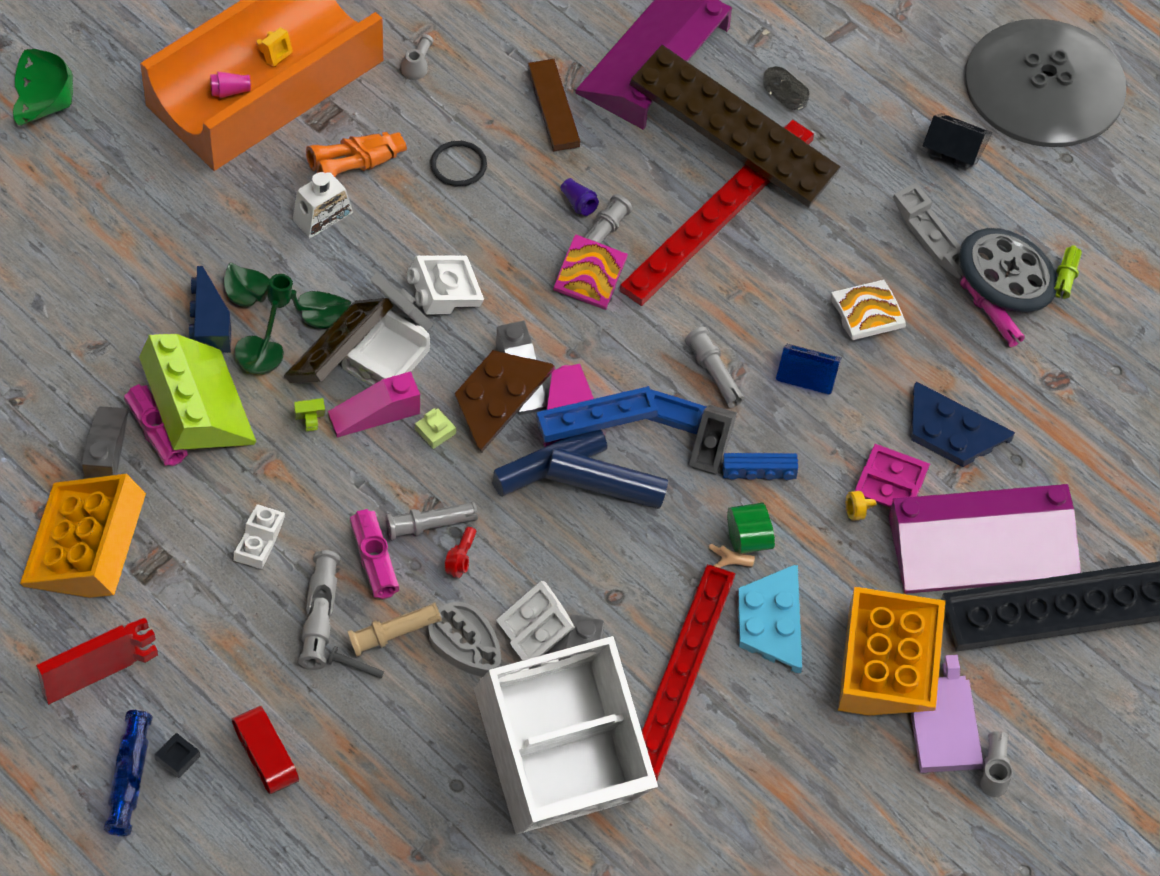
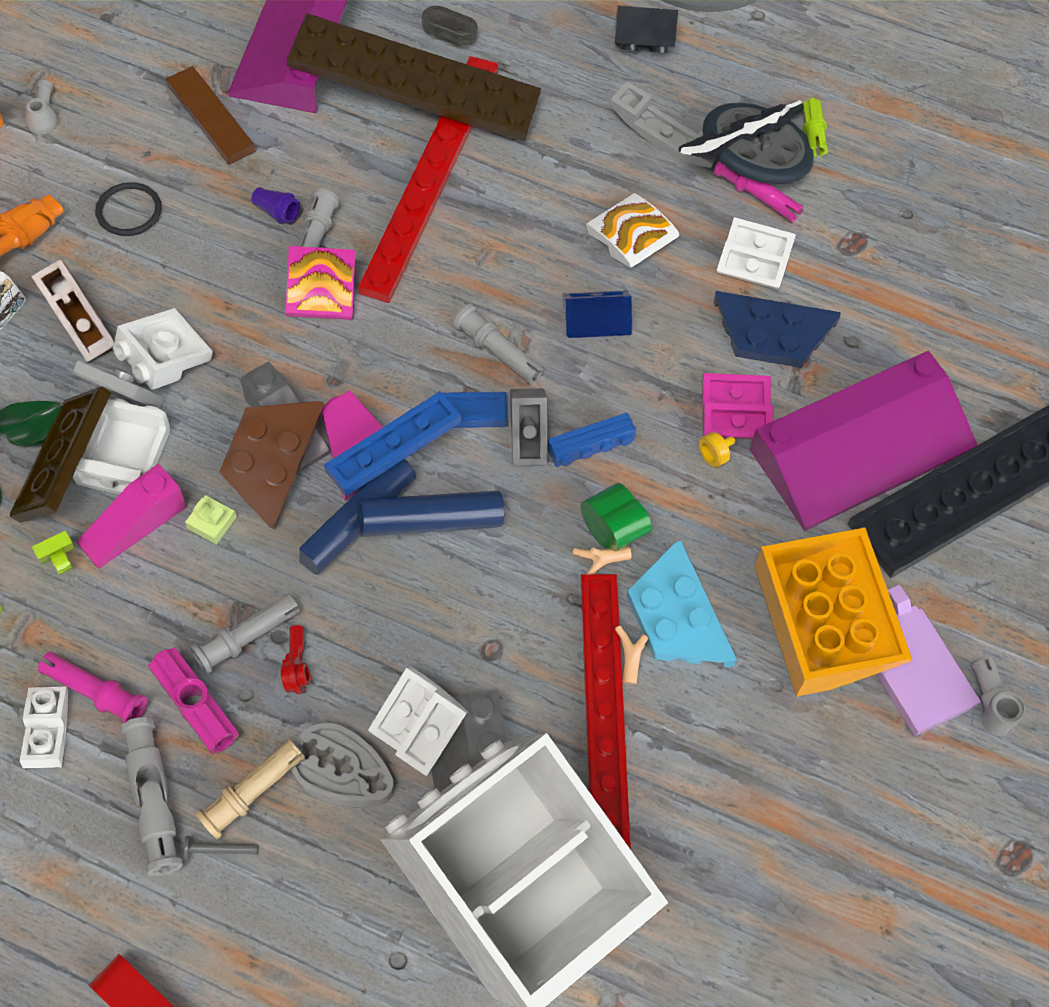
camera: 20 degrees left, 5 degrees up
(311, 528) = (107, 695): none -> dark pink pin
(387, 232) = (74, 310): none -> slope
(721, 636) = (632, 656): none -> light nougat bar
(966, 362) = (756, 253): none -> white slope
(1001, 255) = (748, 128): none -> black sword

